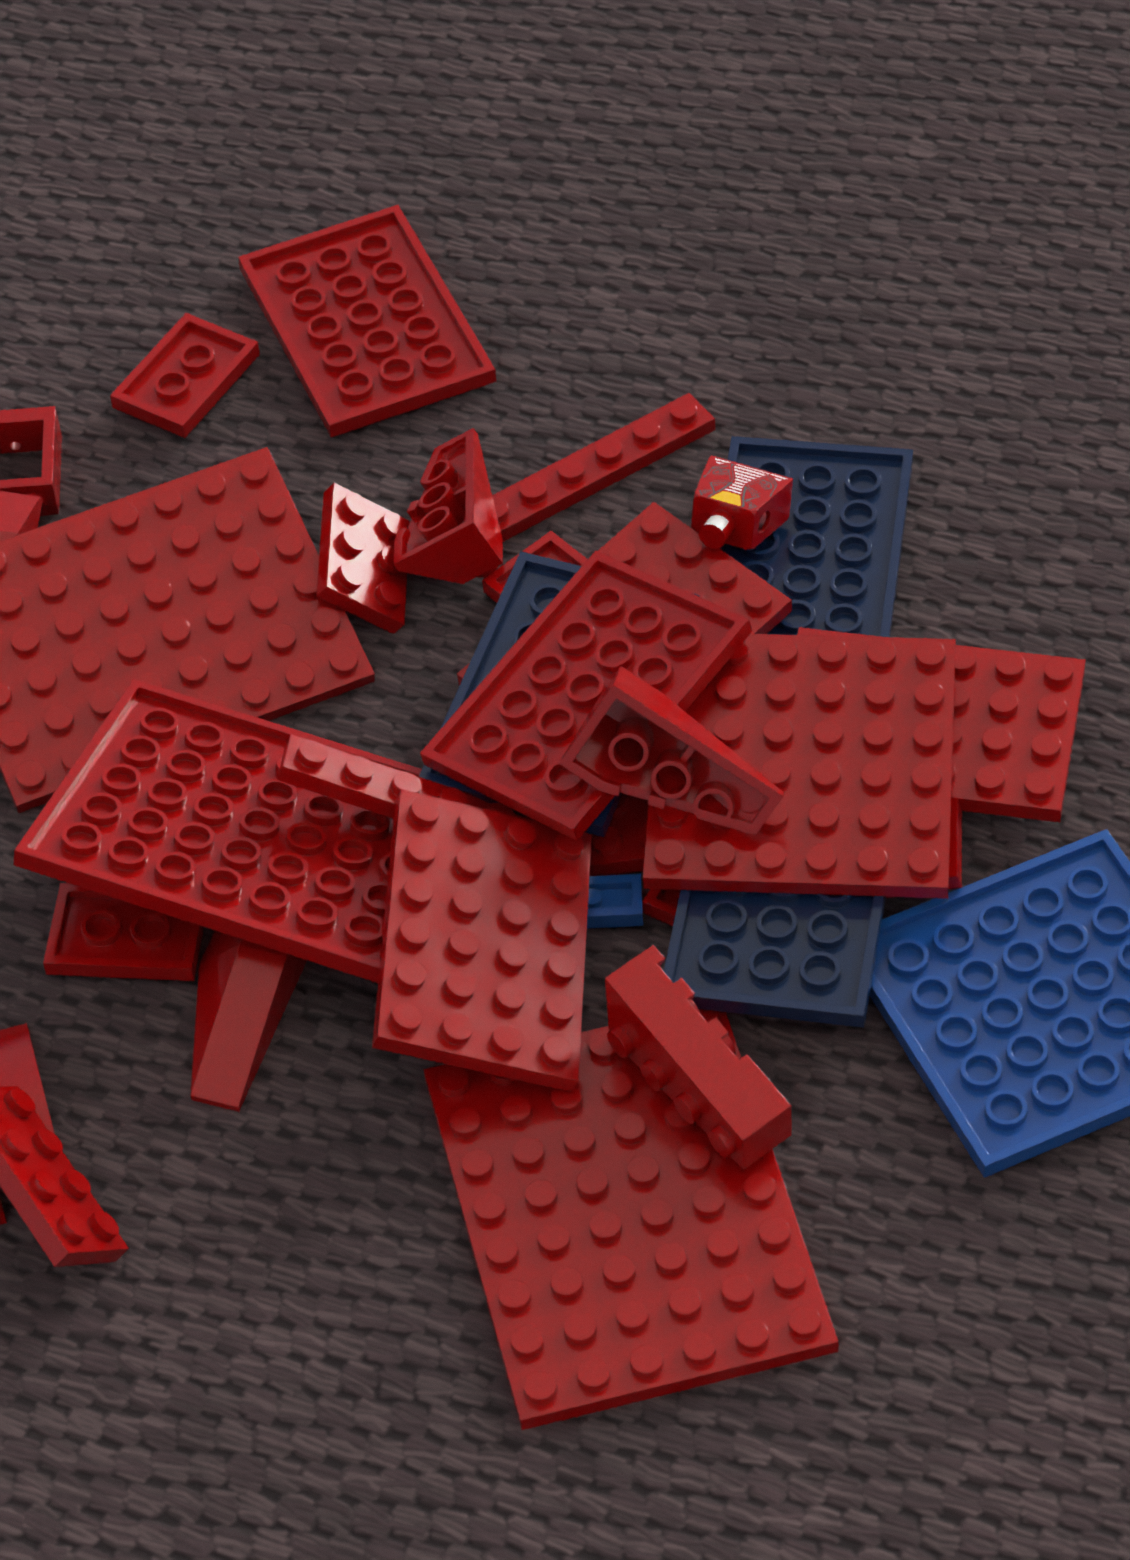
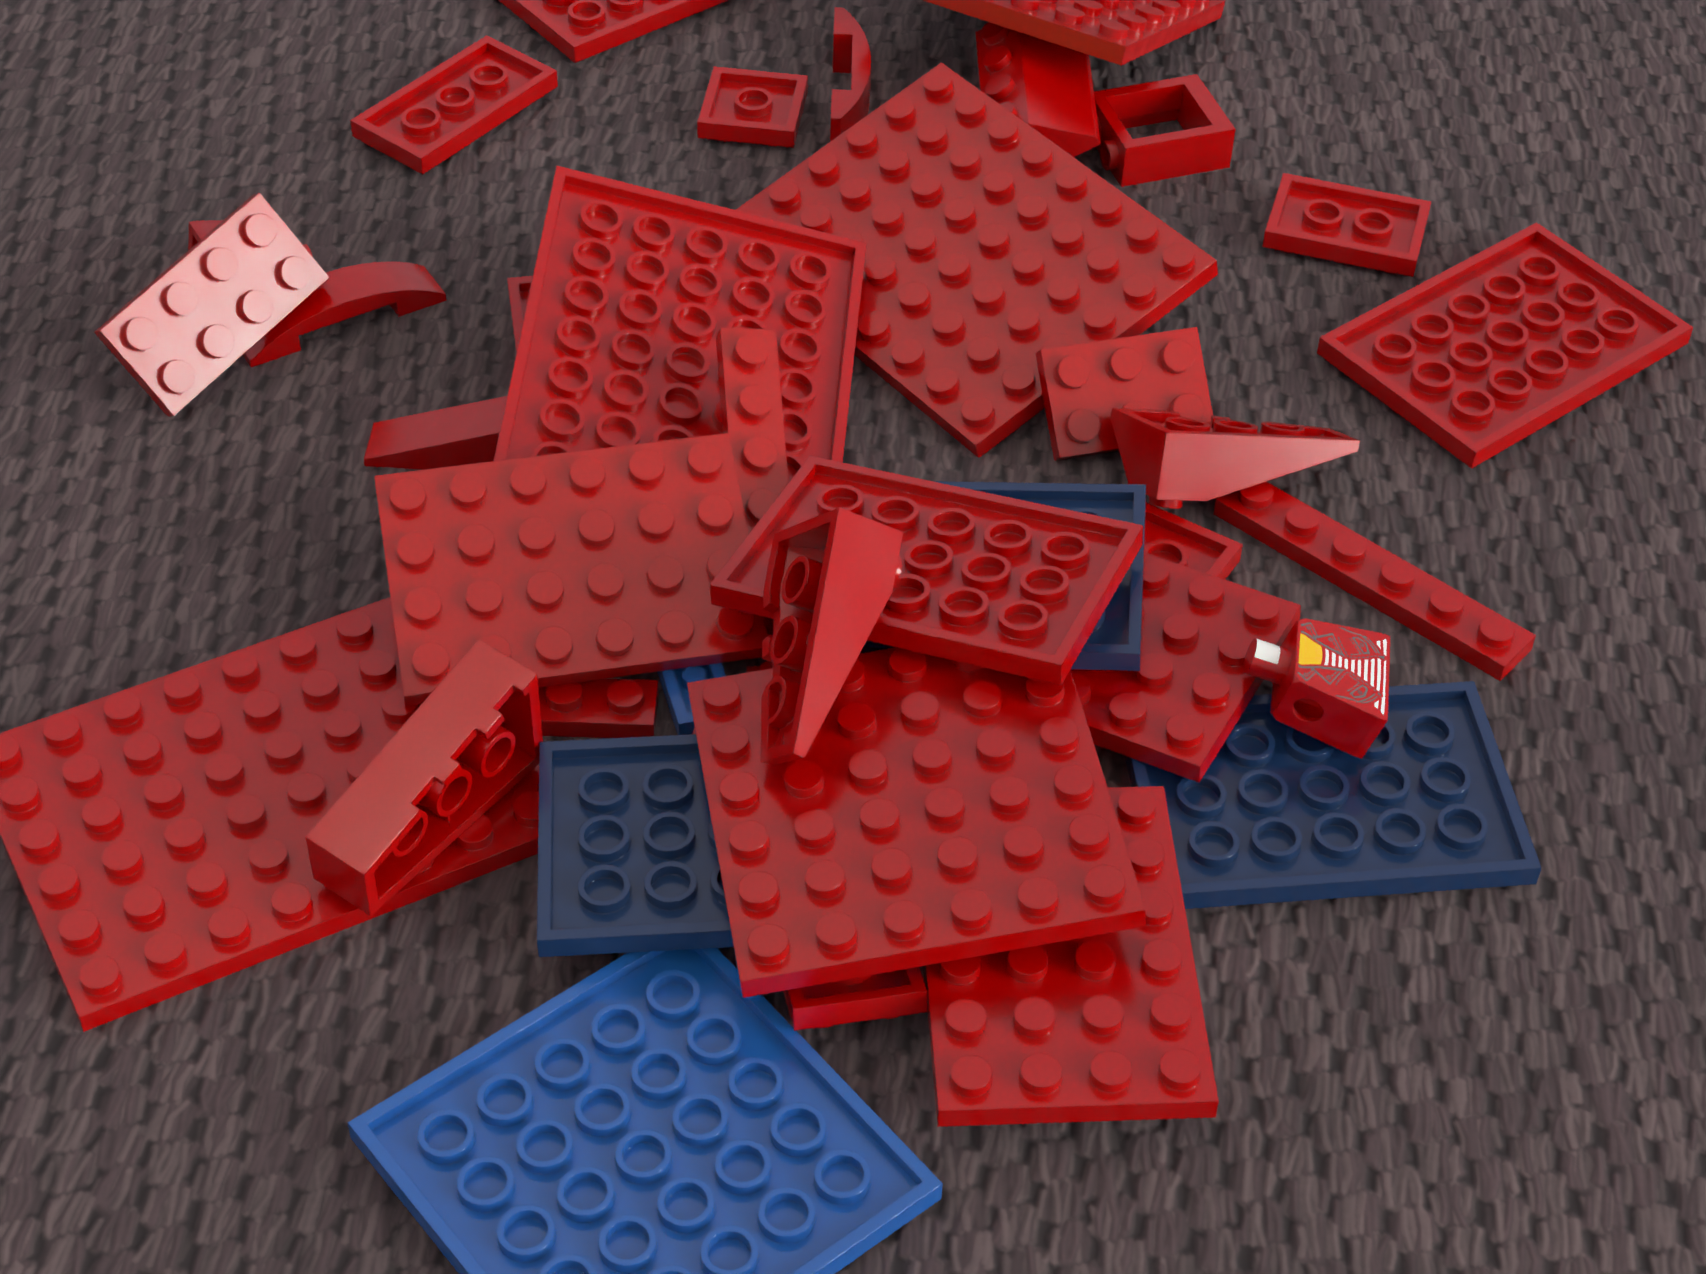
camera: 70 degrees right, 5 degrees down
(604, 954) = (600, 708): none -> red plate

